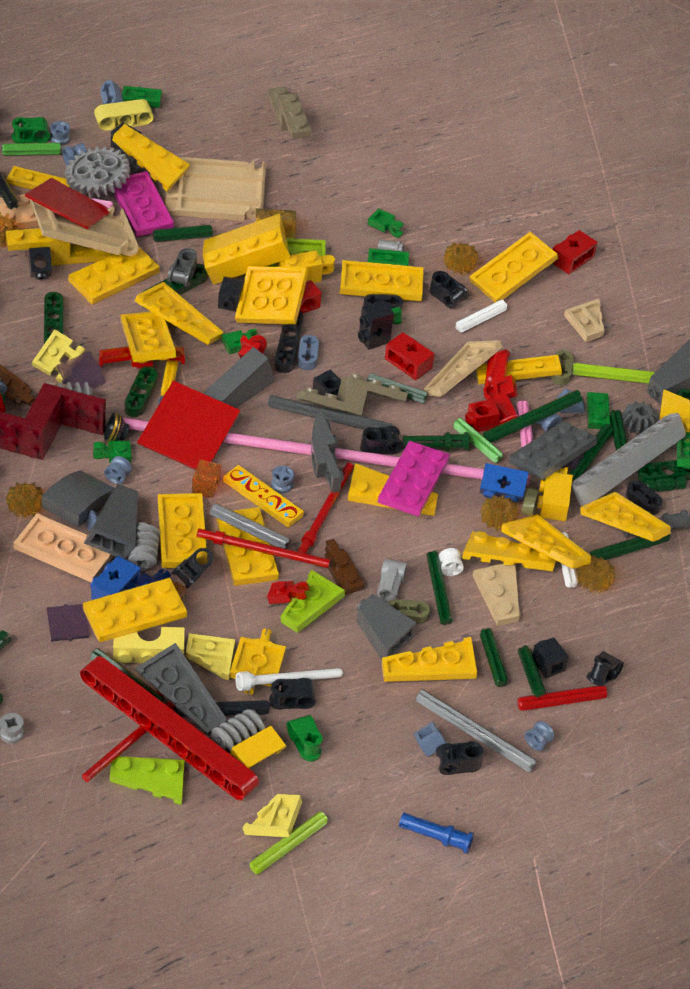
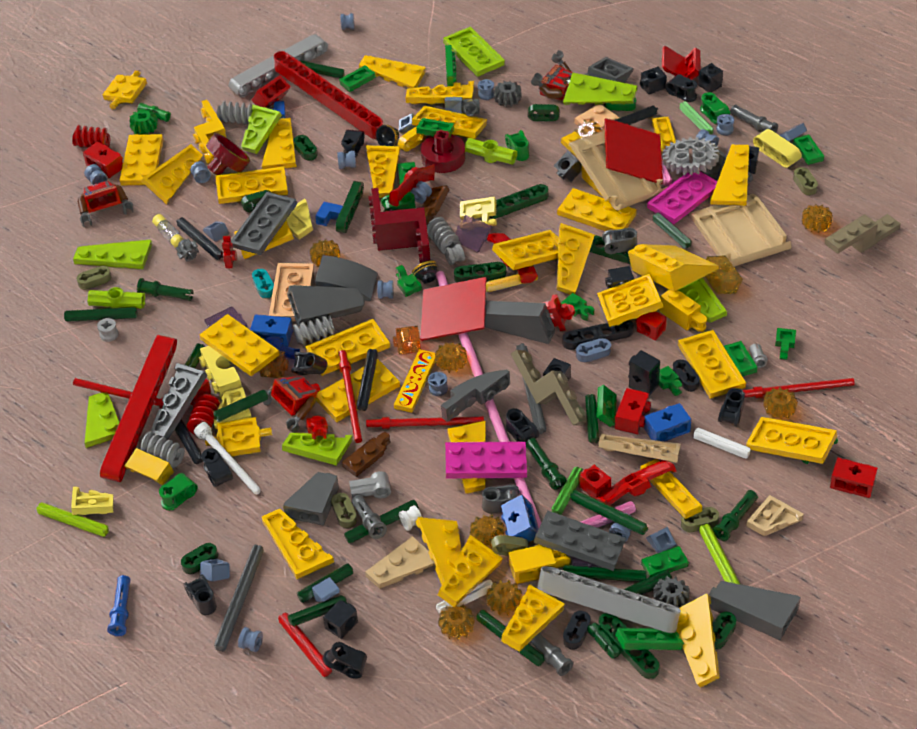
camera: 75 degrees right, 0 degrees up
(30, 568) = (266, 282): none -> teal beam
(77, 110) = (759, 123): none -> dark grey pin
(105, 392) = (454, 254): none -> light grey wheel
(181, 118) = (803, 177): none -> olive beam
(214, 682) = (203, 411): none -> red piece
(221, 640) = (240, 405): none -> dark green axle
(234, 592) = (295, 396): none -> torso
(241, 132) = (817, 218): none -> clear yellow gear
(253, 455) = (451, 357): none -> clear yellow gear
(398, 374) = (606, 405): none -> green plate
(411, 747) = (197, 556): none -> dark green beam
(435, 265) = (759, 392): none -> red bar
(440, 338) = (667, 423): none -> blue brick
(445, 588) = (367, 516): none -> dark grey pin
(464, 490) = (496, 496): none -> dark grey piece
(512, 656) = (325, 590): none -> sand blue slope
(577, 347) = (730, 520): none -> dark green pin
(585, 530) = (503, 597): none -> clear yellow gear

